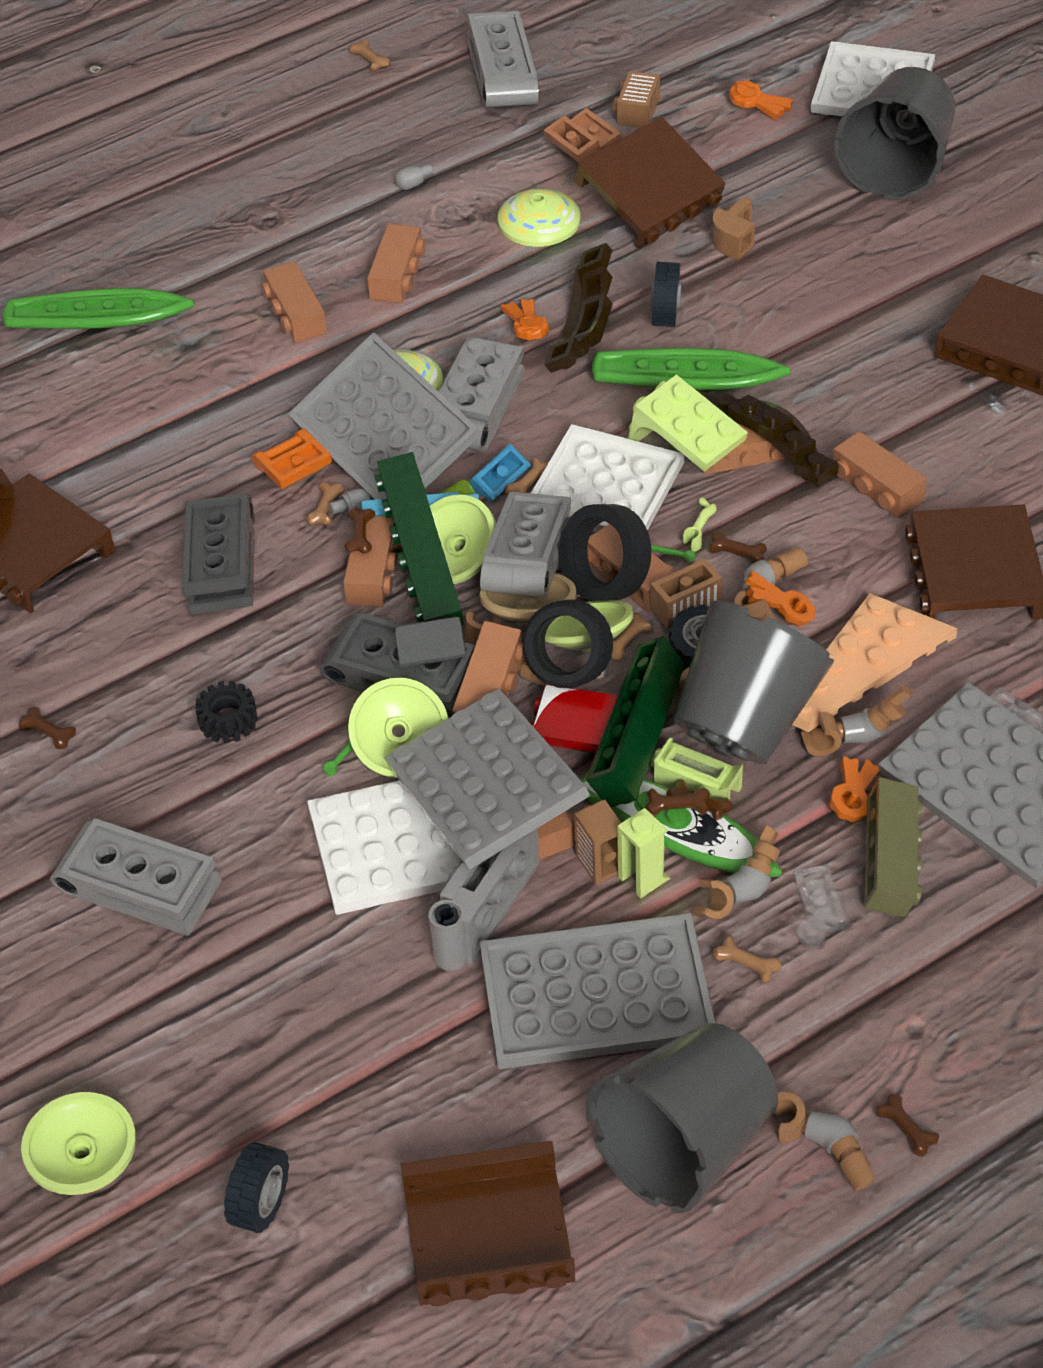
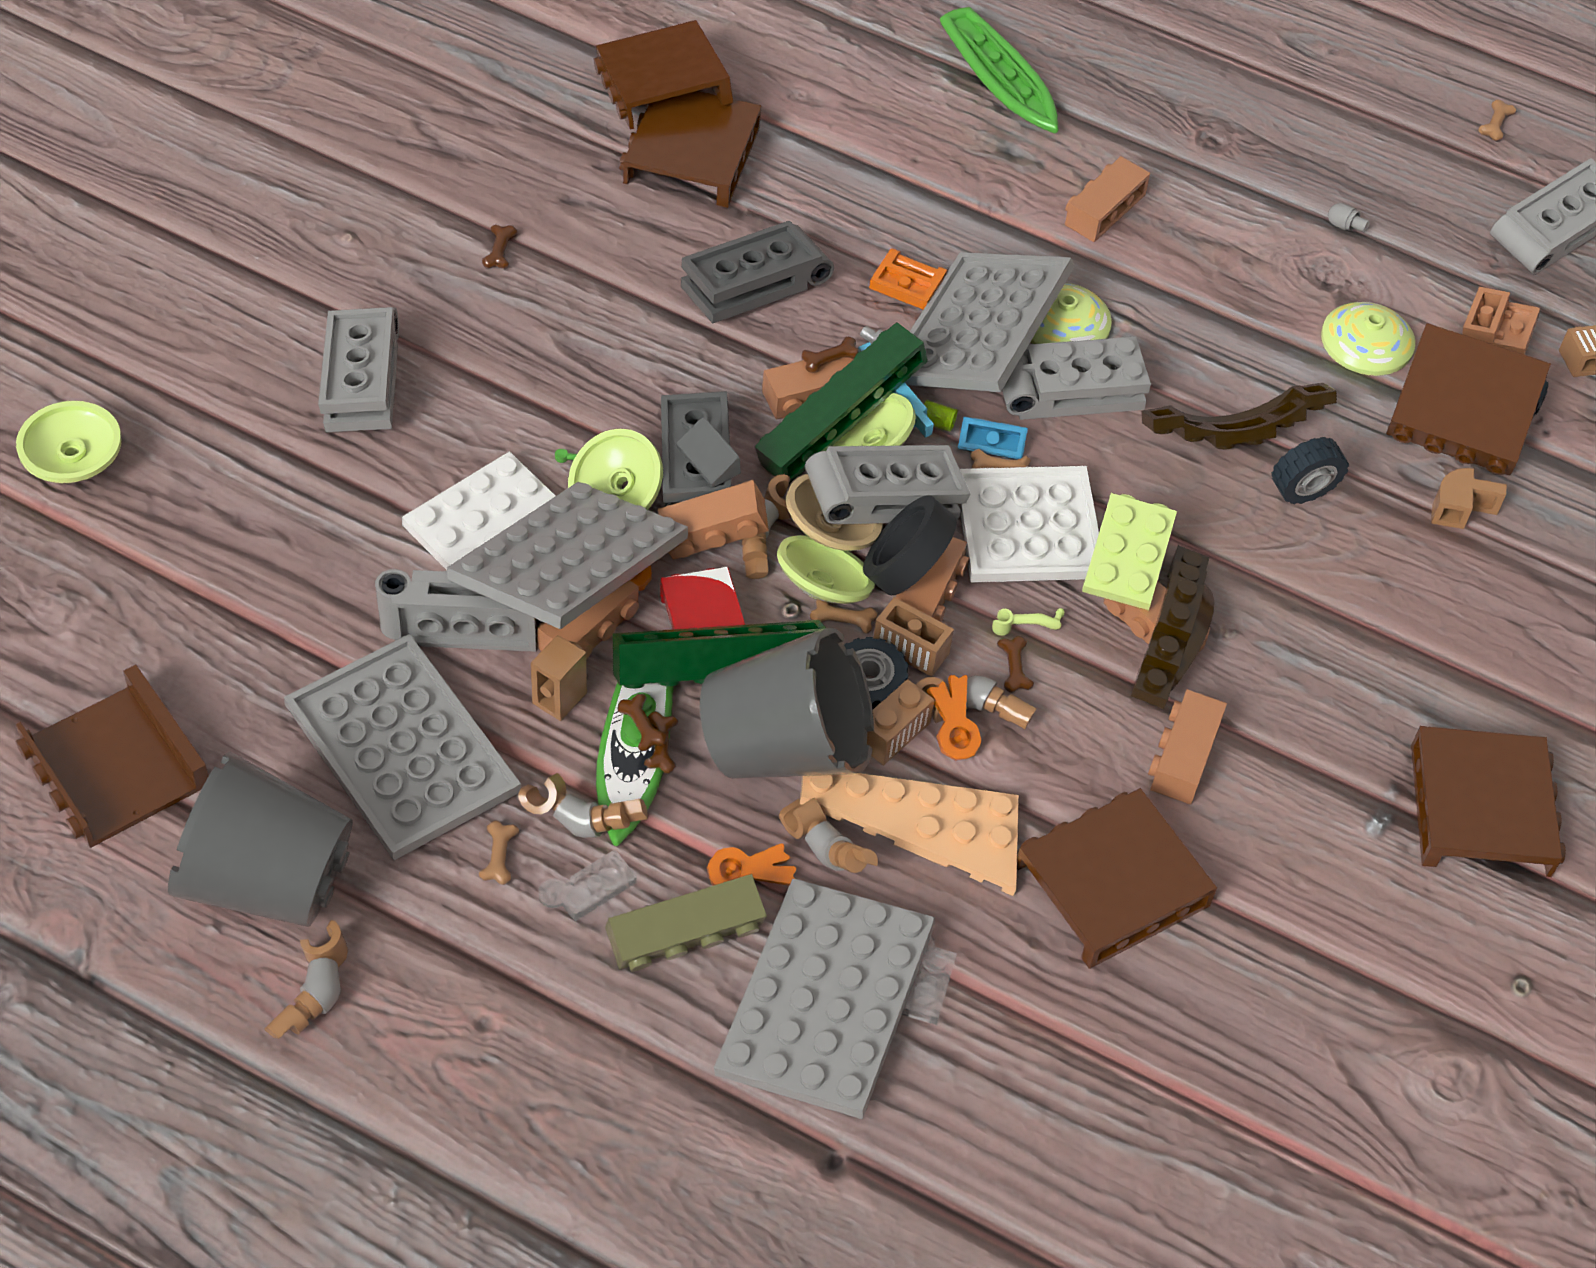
camera: 55 degrees right, 5 degrees up
(222, 698) = (583, 368): black tyre -> none
(256, 1187) = (68, 573): black wheel -> none
(320, 515) = (854, 328): medium nougat piece -> none
(395, 263) = (1212, 250): nougat brick -> none
(526, 324) = (1205, 387): orange piece -> none
(535, 650) = (783, 565): black tyre -> none
(642, 851) = (557, 714): yellowish green window -> none
(688, 555) = (980, 627): bright green hinge -> none
(696, 366) = (1232, 532): bright green piece -> none
(696, 770) = (690, 736): yellowish green window -> none
(920, 1139) = (354, 1066): reddish brown piece -> none

